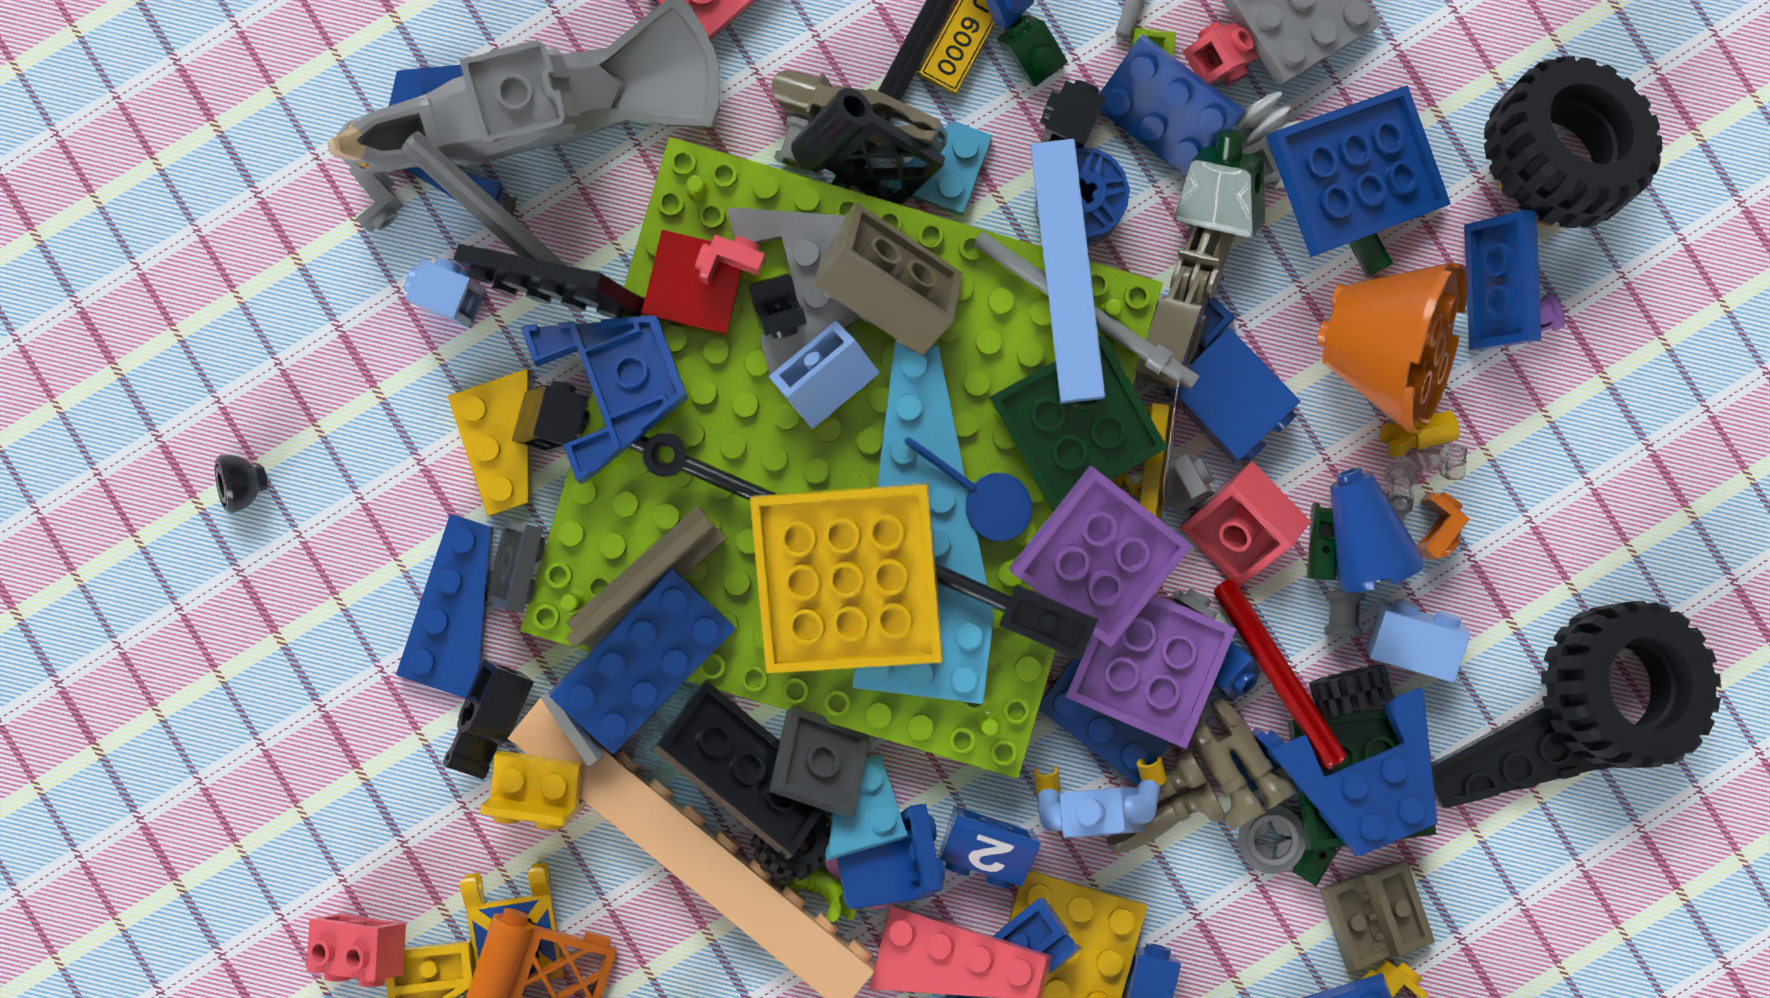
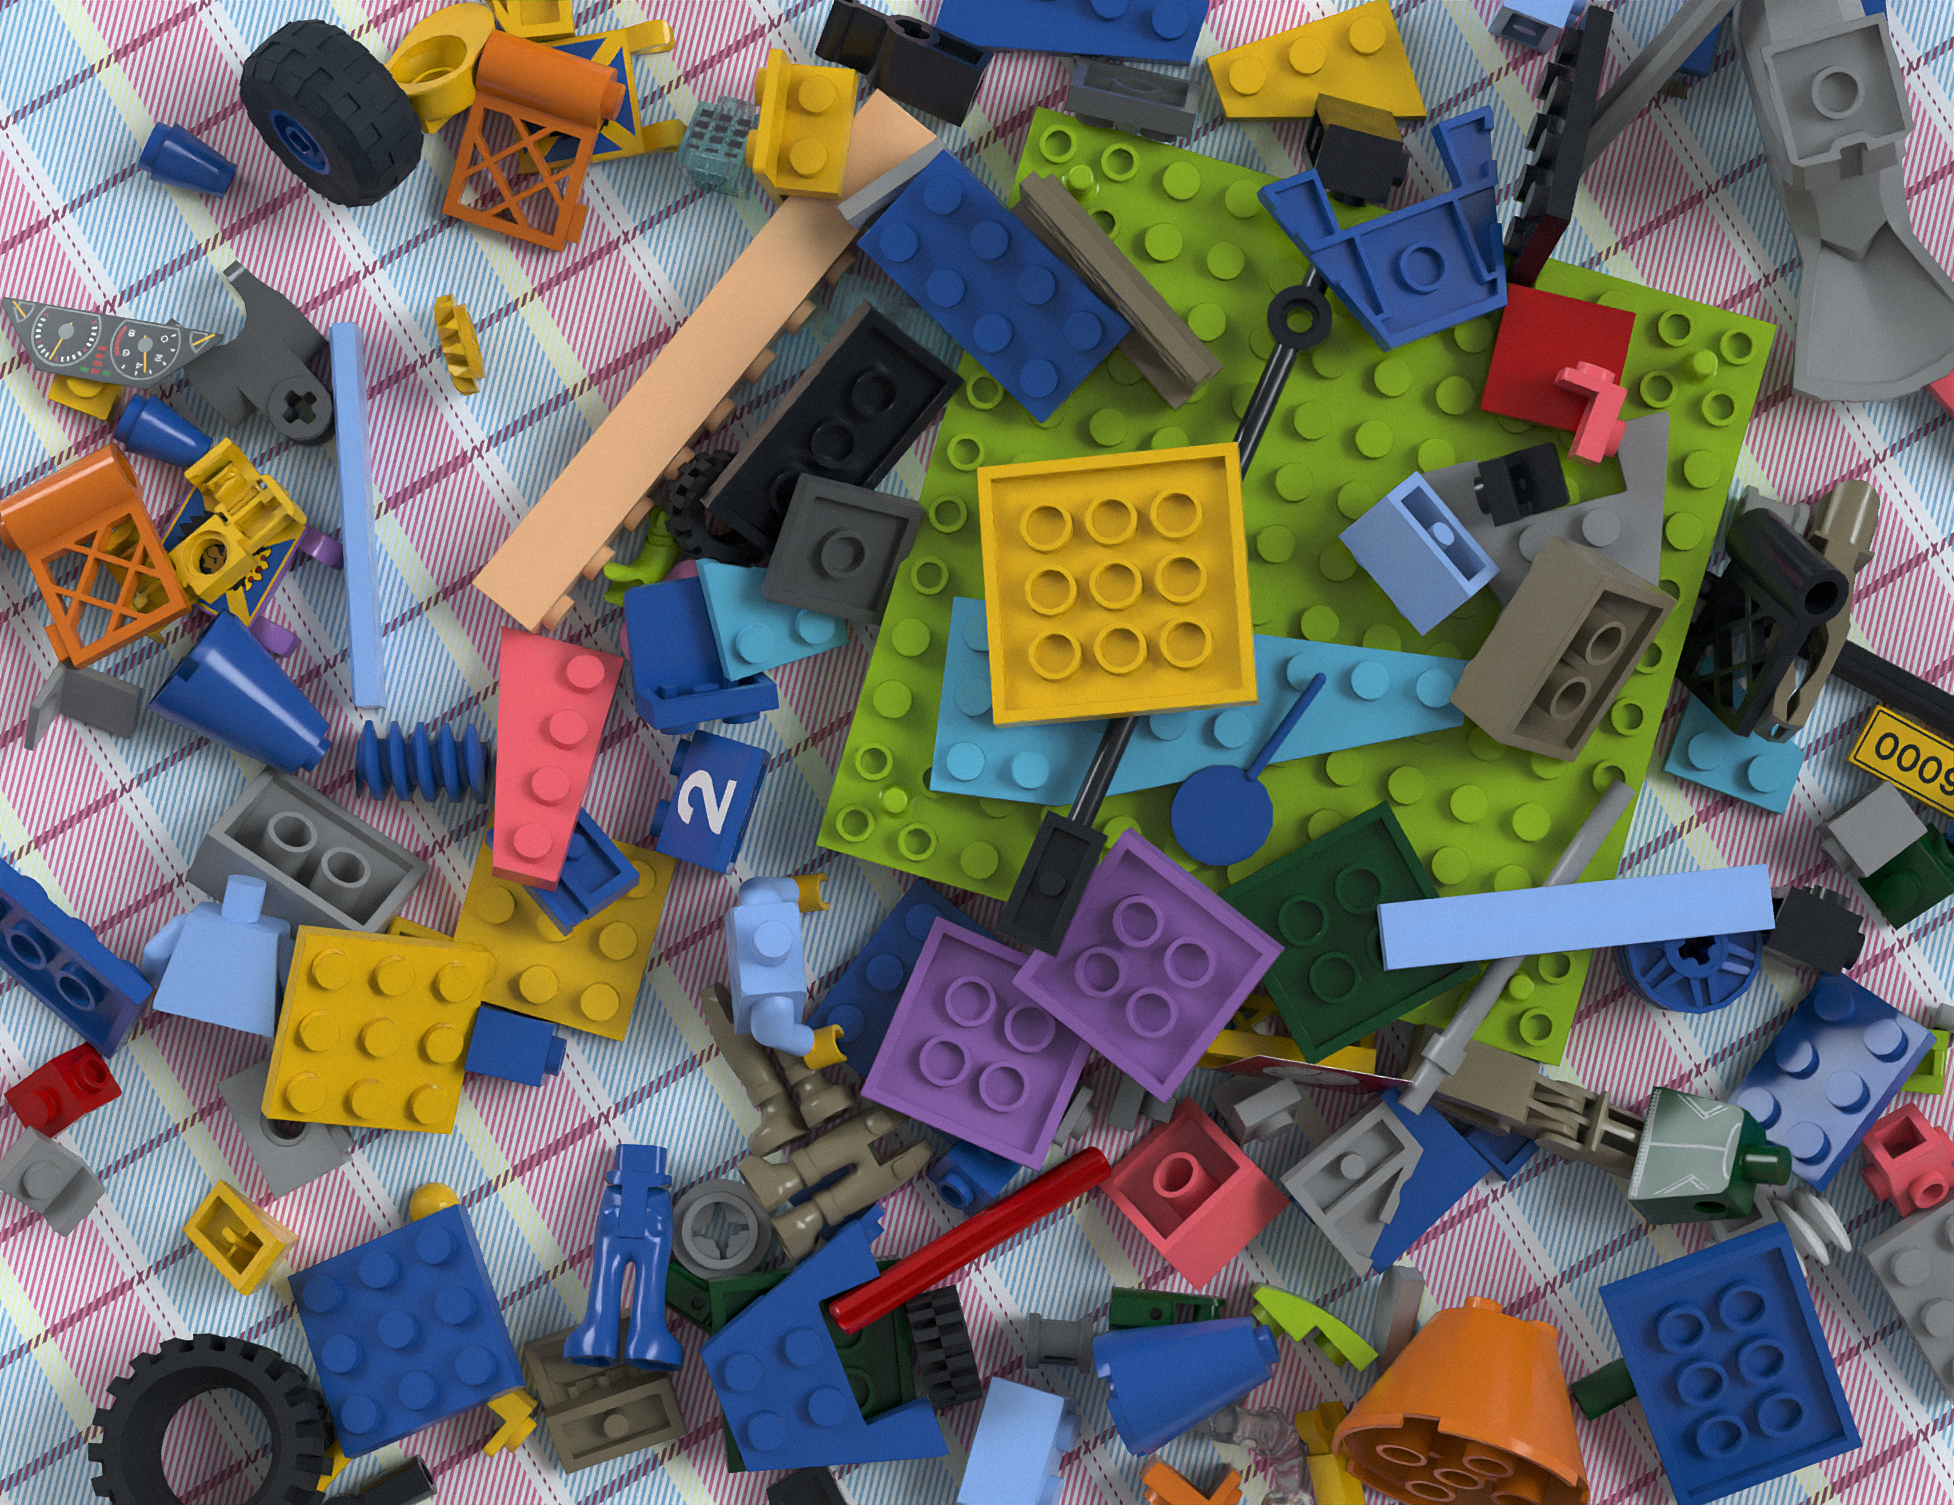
camera: 90 degrees right, 0 degrees up
(546, 850) = (715, 147): none -> clear light blue slope
(1003, 78) = (1869, 830): none -> light grey brick
(1188, 566) = (1135, 1100): none -> dark grey tile
(1240, 417) = (1356, 1181): none -> light grey wing
(1273, 897) = (635, 1228): none -> blue piece
(1325, 390) = (1396, 1312): none -> light grey tile
(1325, 455) = (1298, 1315): none -> lime slope

